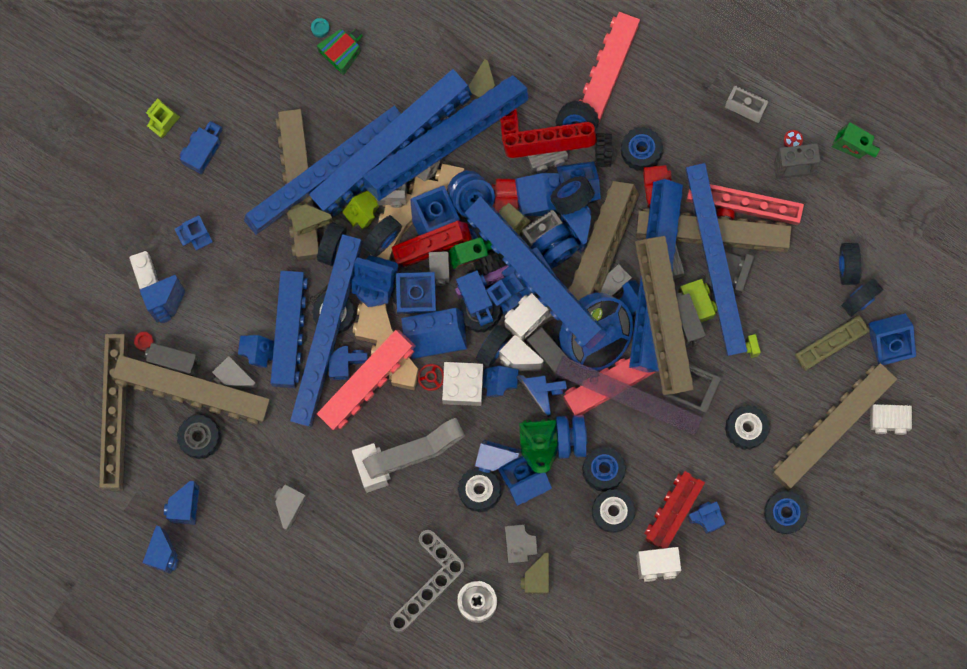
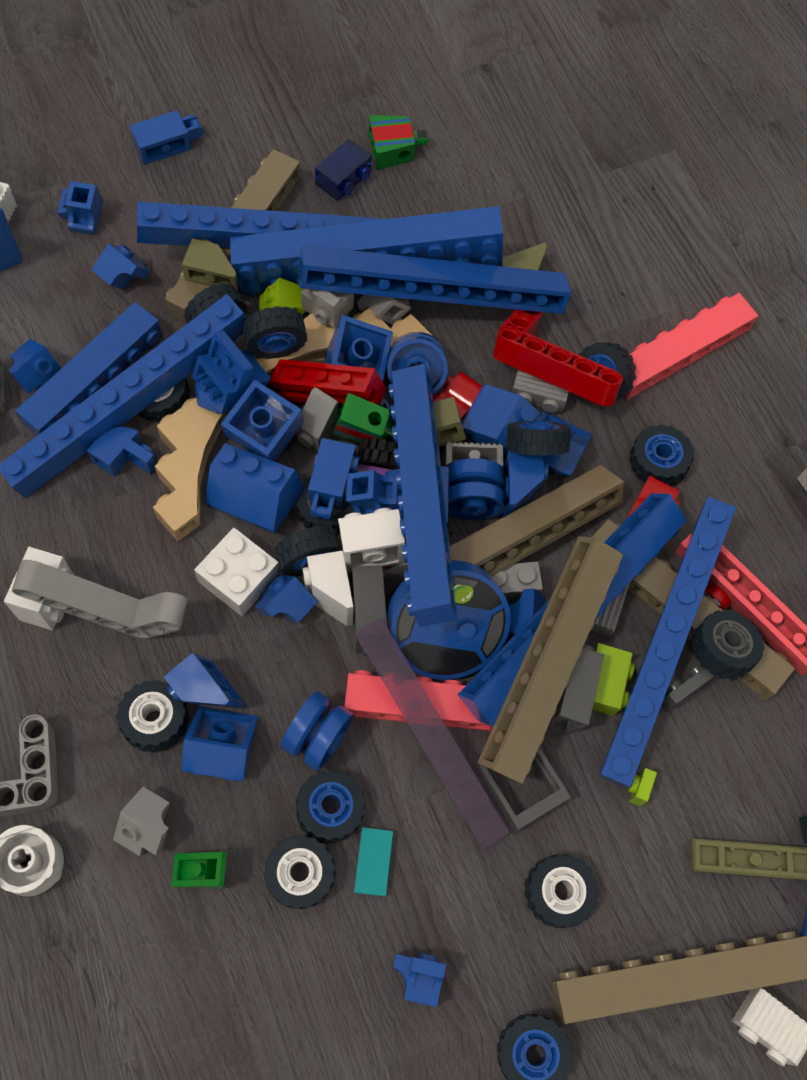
camera: 25 degrees right, 10 degrees down
(161, 118) = (149, 82): lime brick -> none
(250, 253) = (119, 266): none -> blue brick
(320, 27) = (389, 107): teal tile -> none
(327, 92) = (343, 170): none -> clear blue brick
(366, 380) = (124, 482): coral brick -> none
(430, 381) = (201, 535): red piece -> none
(537, 577) = (131, 887): olive slope -> none
(539, 389) = (323, 645): blue piece -> none
(539, 443) = (268, 710): green piece -> none
(564, 545) = (199, 870): none -> green slope
(603, 150) = (614, 423): black tyre -> none
(645, 480) = (373, 862): none -> teal tile
(658, 564) = (302, 994): white brick -> none
(674, 511) = (381, 934): red brick -> none
(750, 230) = (727, 644): none -> black wheel

